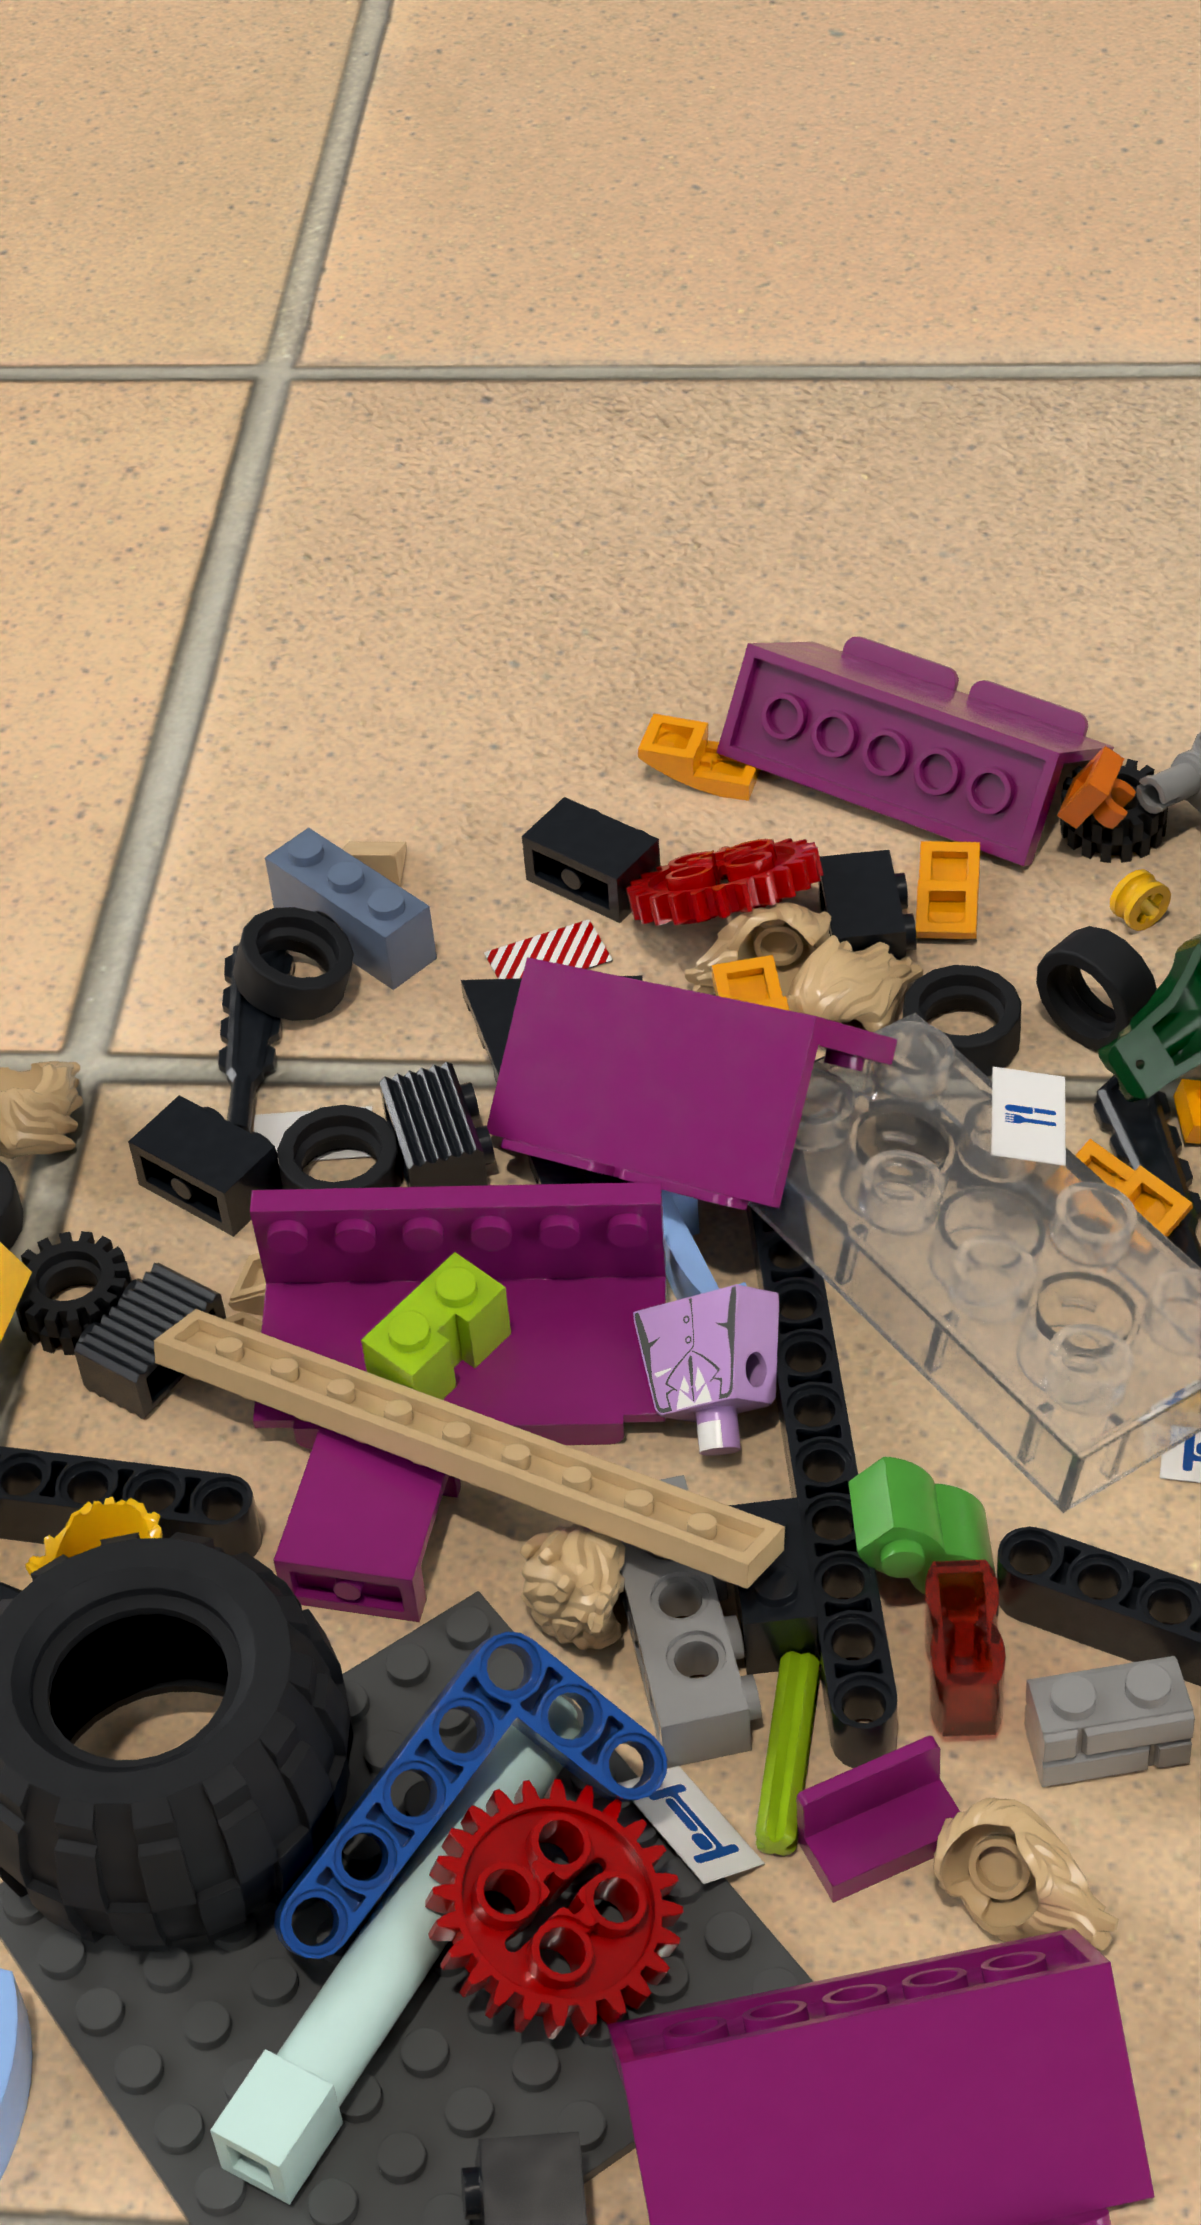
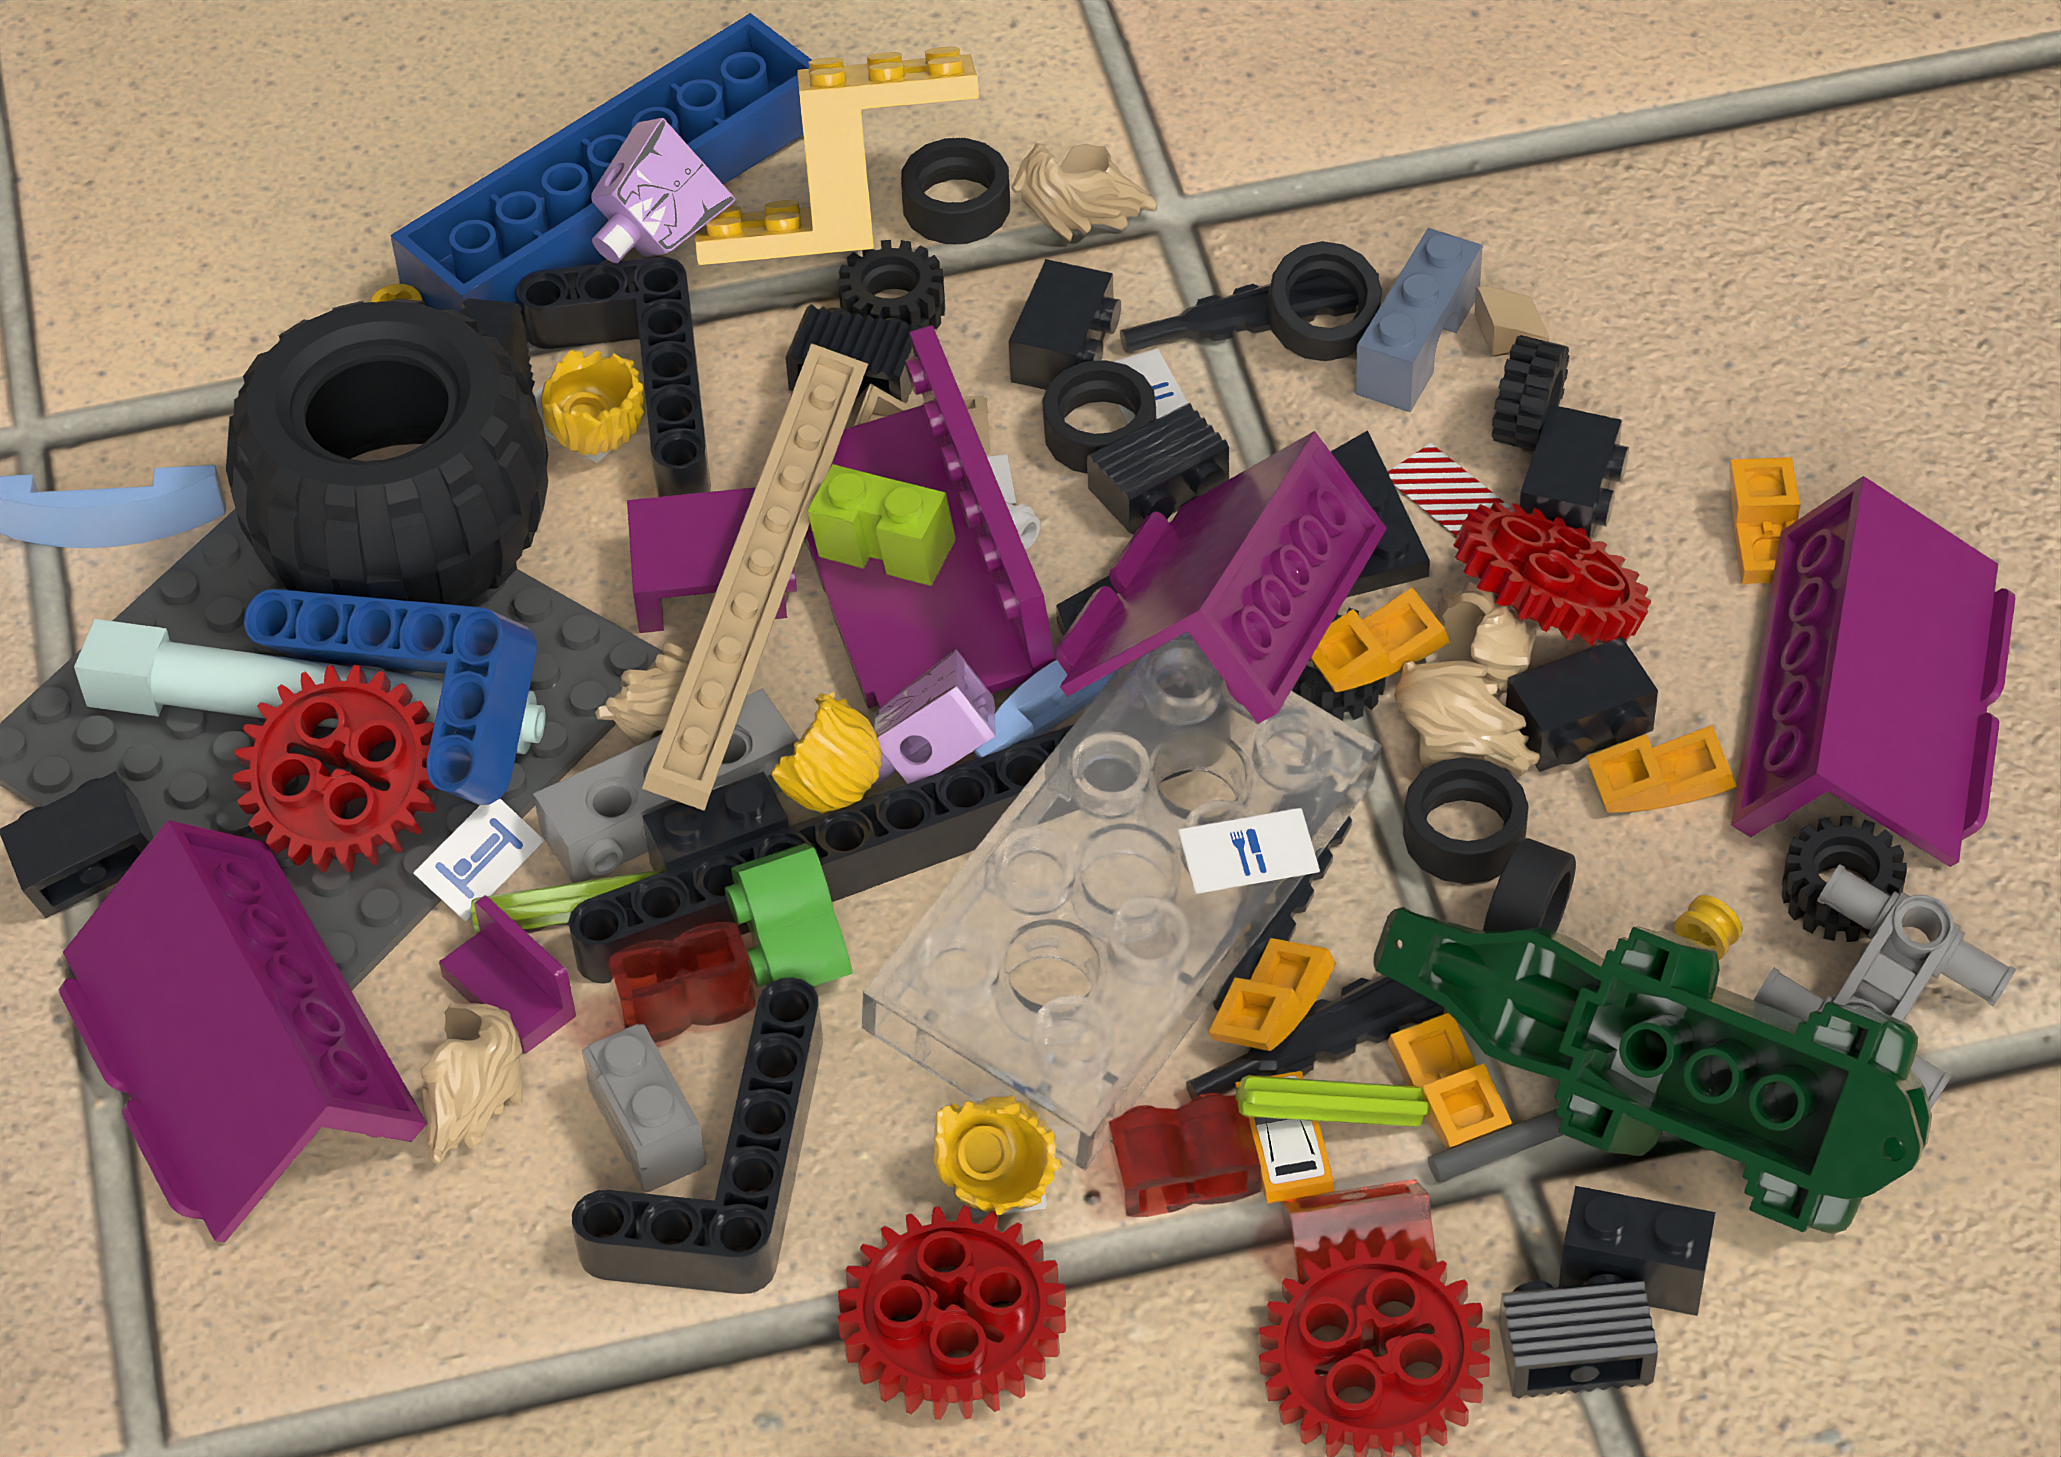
camera: 70 degrees right, 5 degrees up
(496, 849) = (1528, 388): none -> black tyre
(739, 1439) = (832, 760): none -> yellow hair
(1098, 792) = (1809, 828): orange tile -> none

